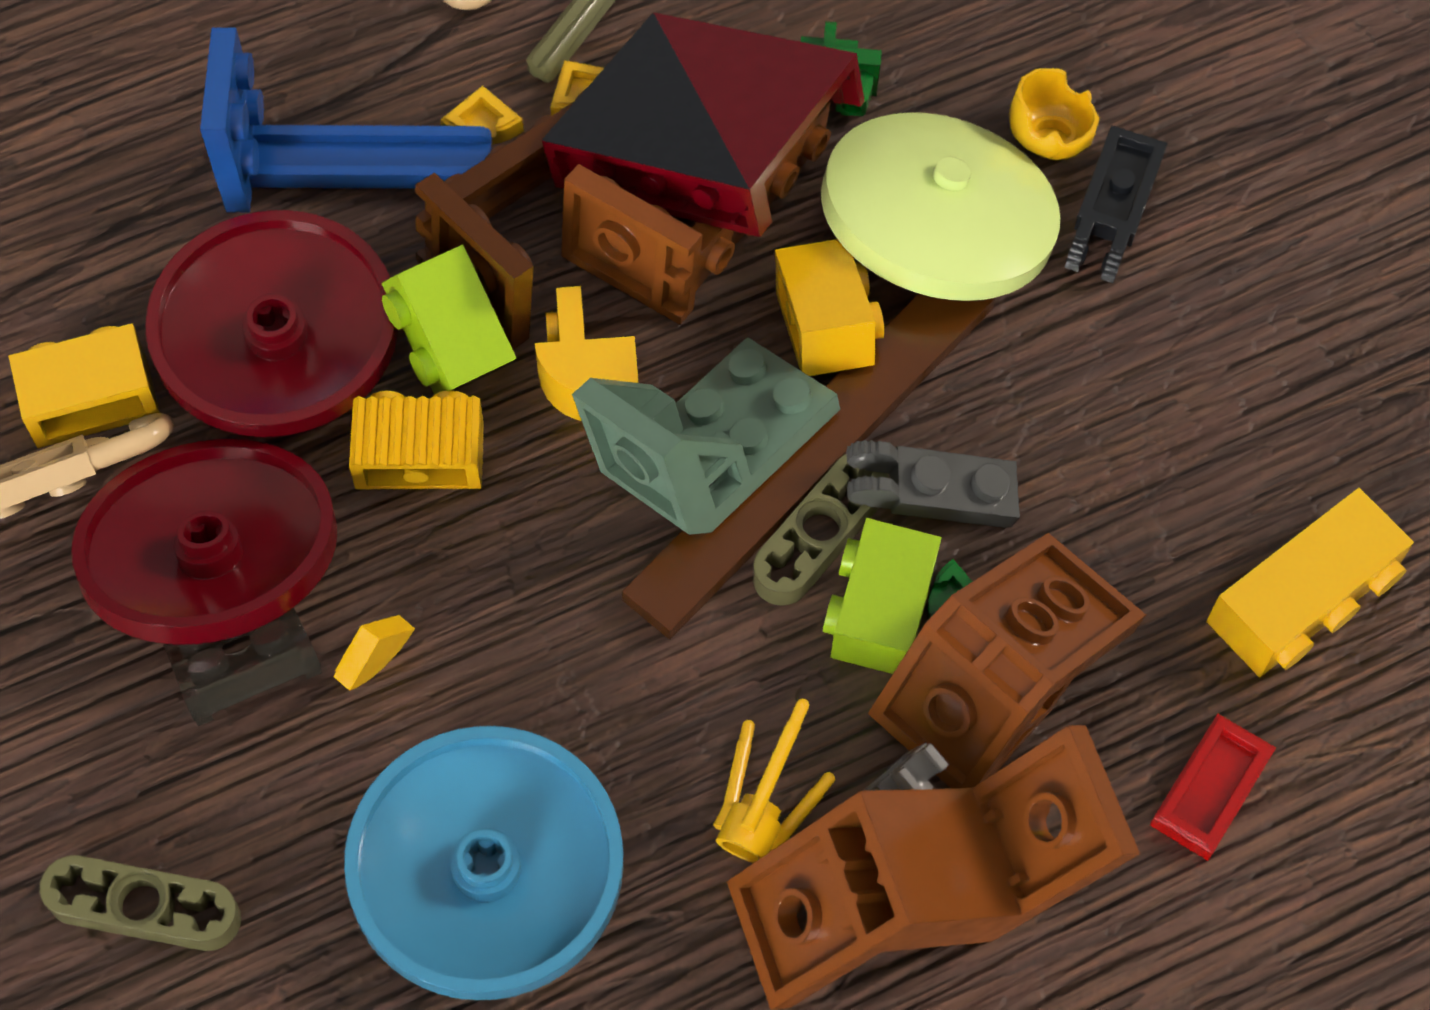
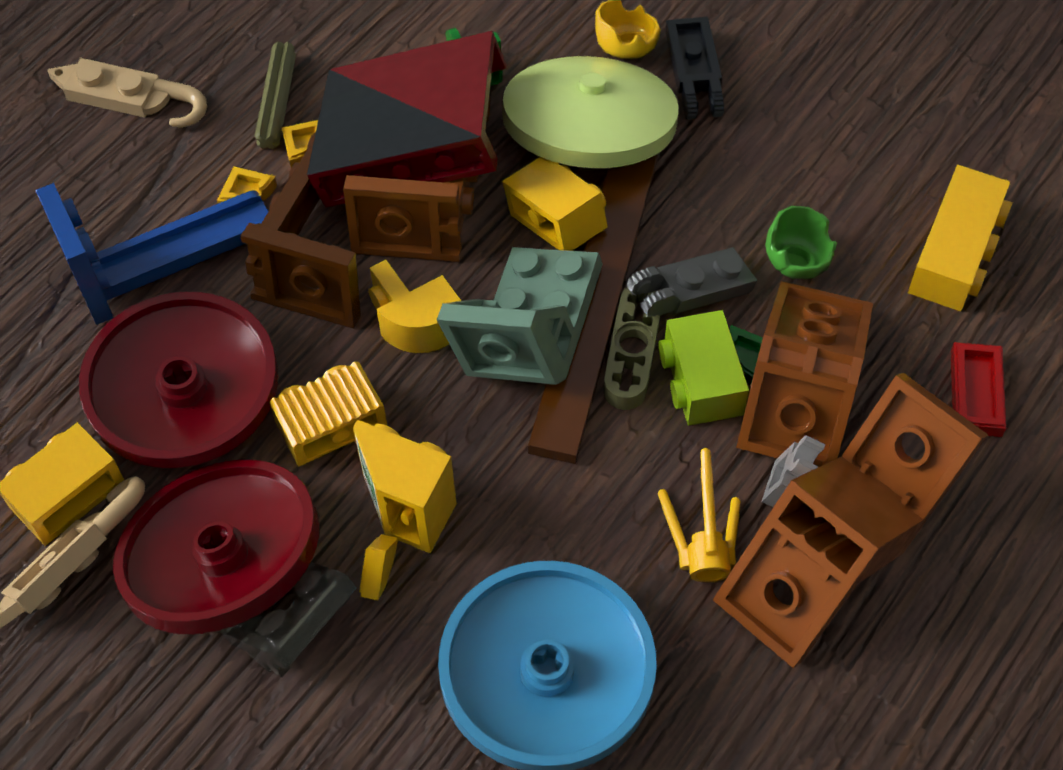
camera: 25 degrees left, 5 degrees down
(445, 573) = (407, 484): none -> yellow slope
(446, 321) = (307, 321): lime piece -> none
(1098, 495) = (800, 243): none -> bright green hair

